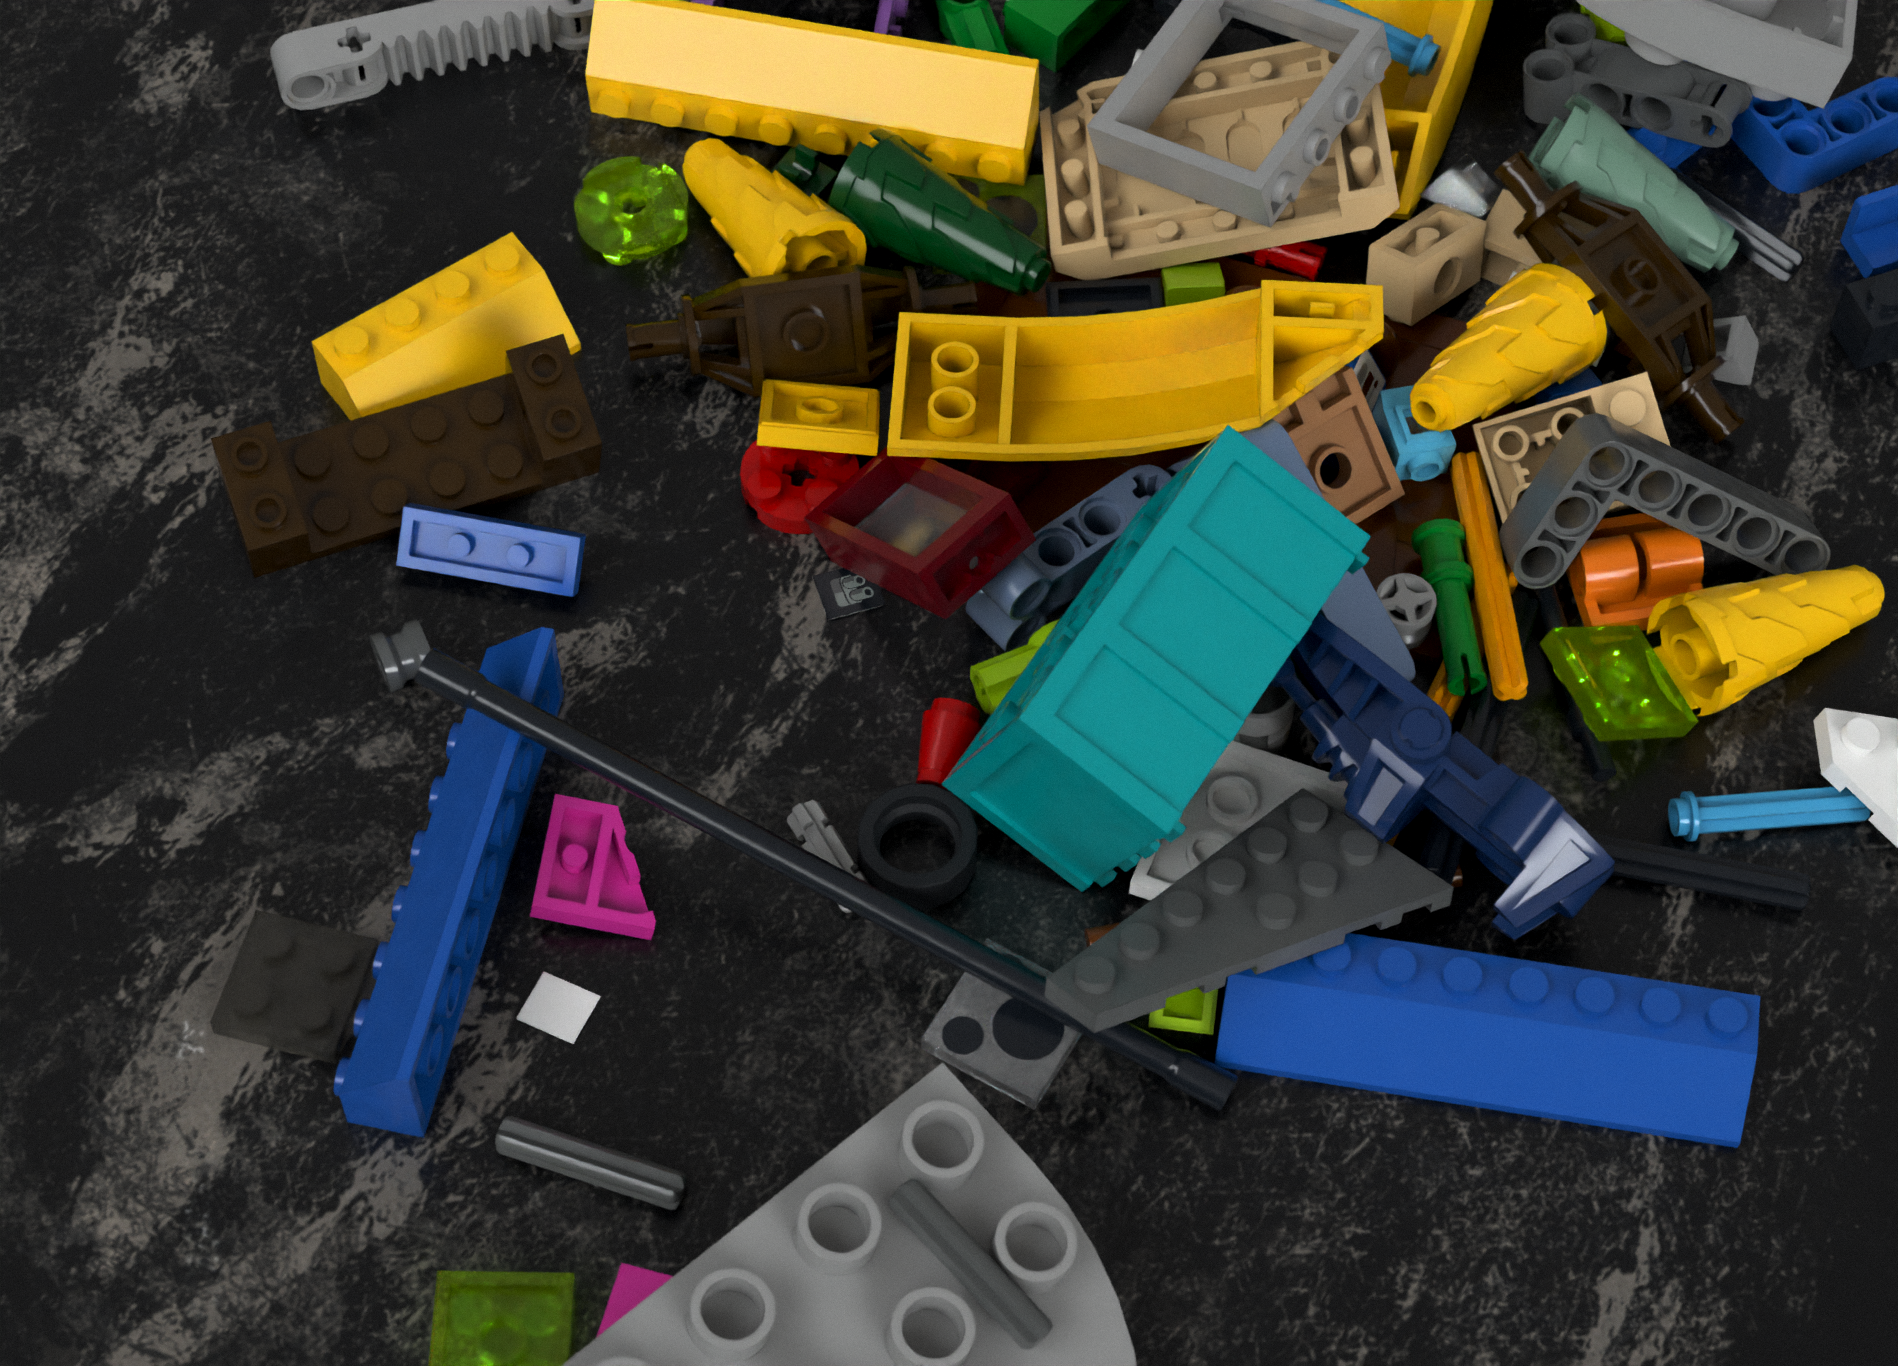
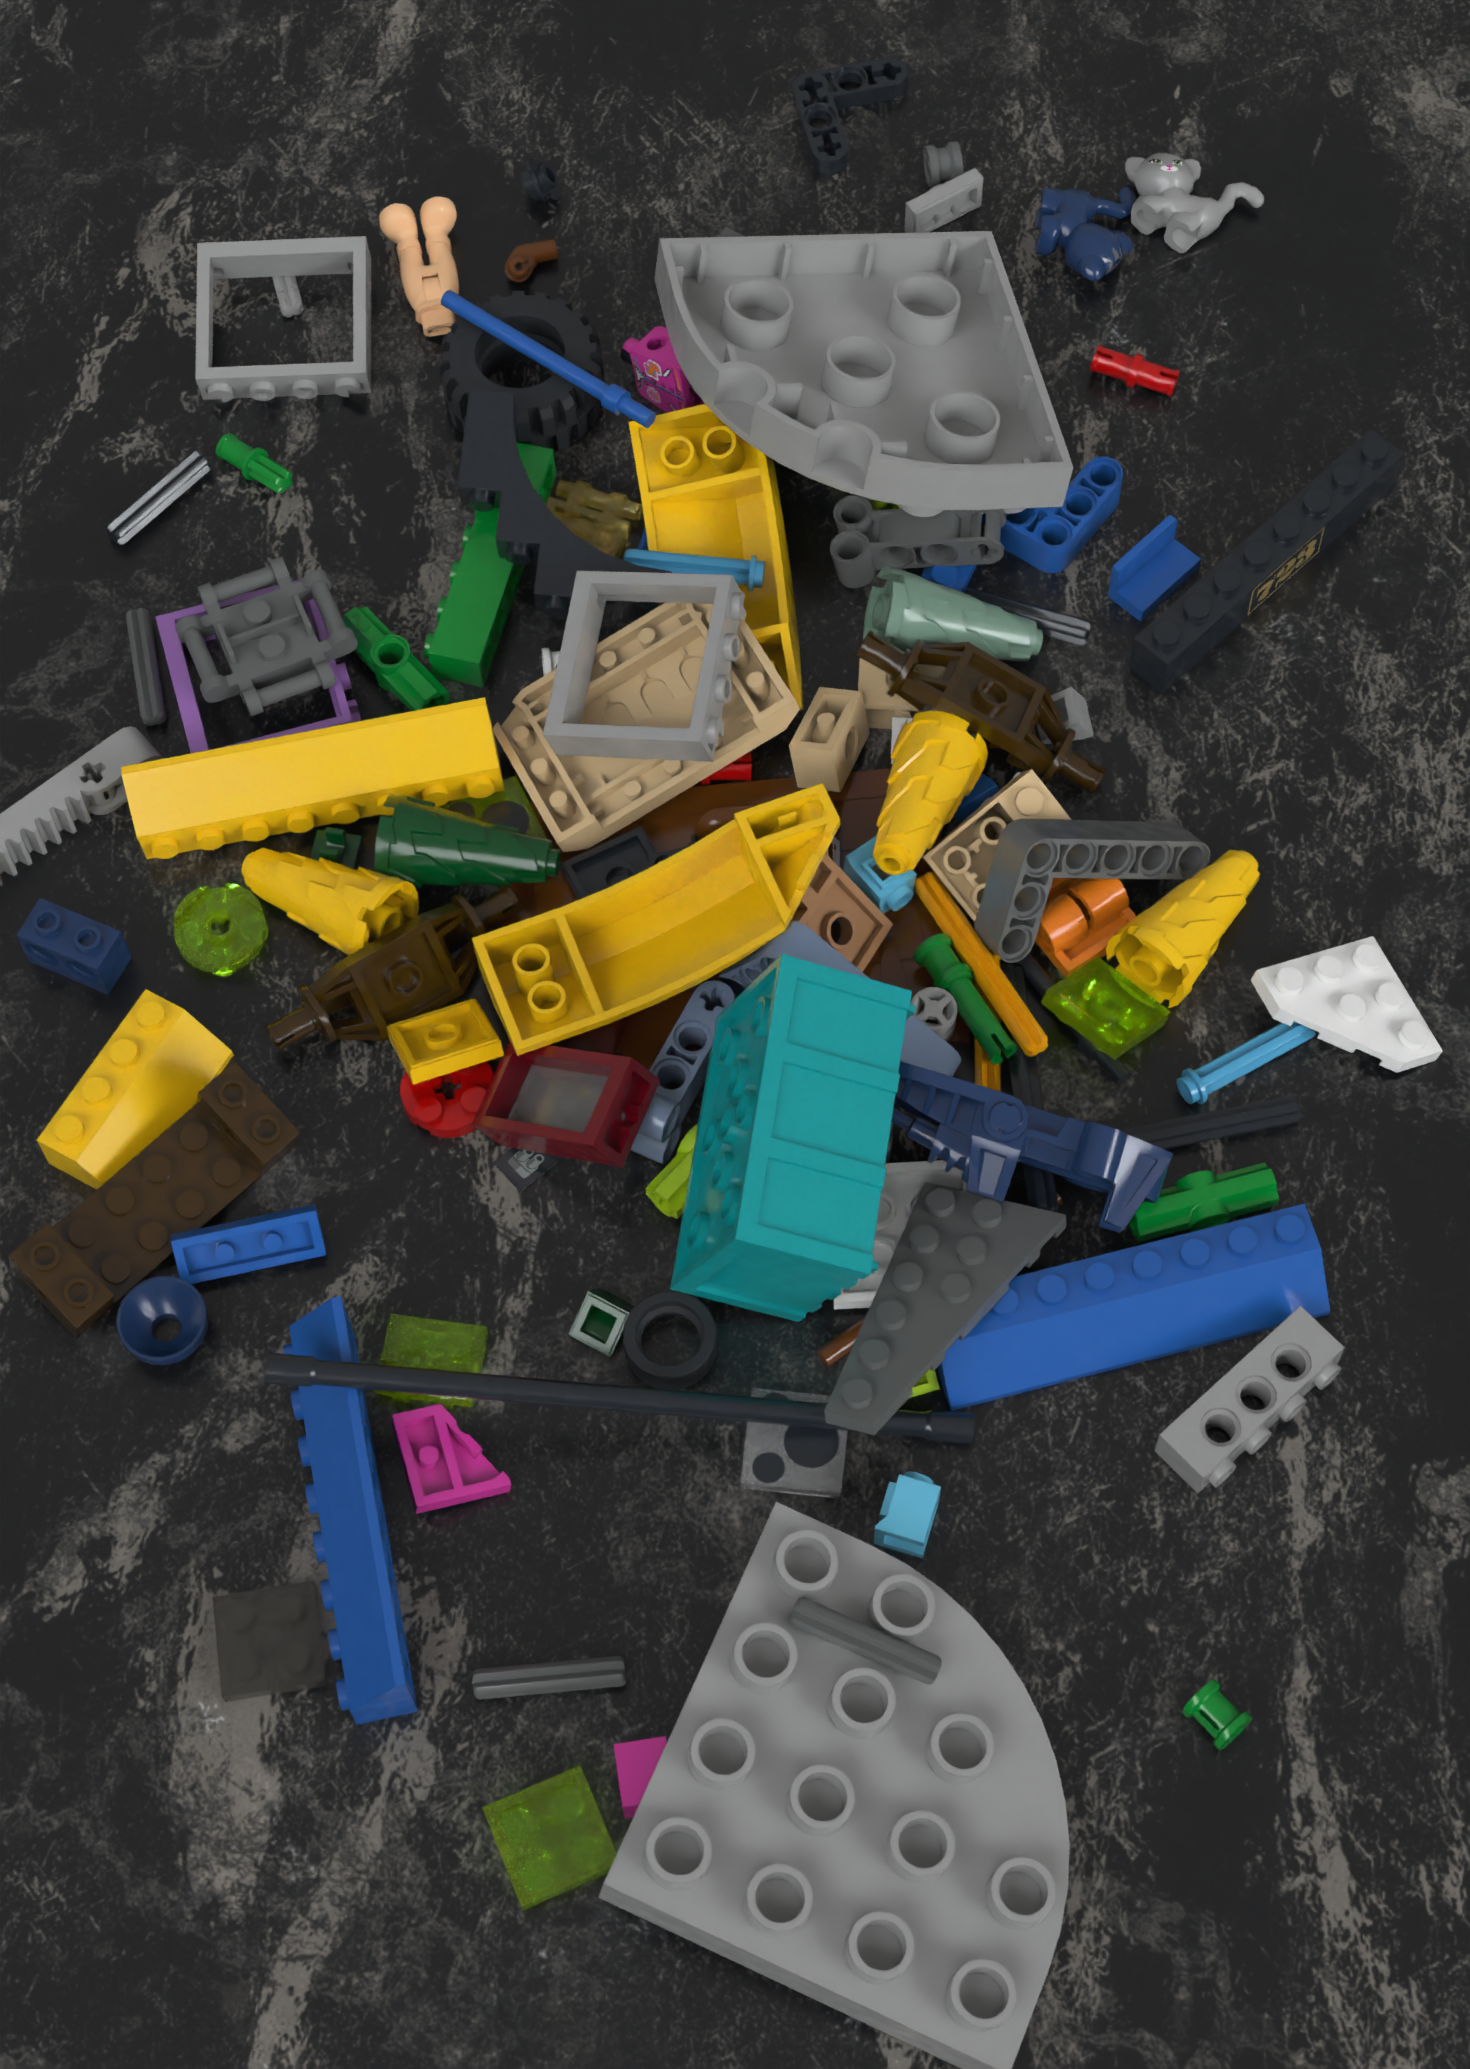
camera: 20 degrees left, 5 degrees up
(351, 570) = (153, 1302): none -> dark blue piece
(400, 654) = (224, 1355): dark grey wheel -> none
(462, 165) = (74, 946): none -> dark blue brick
(558, 1007) = (467, 1571): white sticker -> none
(646, 738) = (433, 1345): none -> clear neon green plate
(809, 823) = (601, 1366): light grey axle -> none
(847, 792) = (601, 1321): none -> slope
(944, 738) = (654, 1253): red cone -> none
(1103, 1157) = (908, 1514): none -> medium azure window
(1192, 283) = (669, 824): lime slope -> none
(1464, 188) = (829, 667): clear slope -> none
(1639, 946) = (1205, 1201): none -> green piece
(1673, 1155) = (1294, 1342): none -> light grey brick

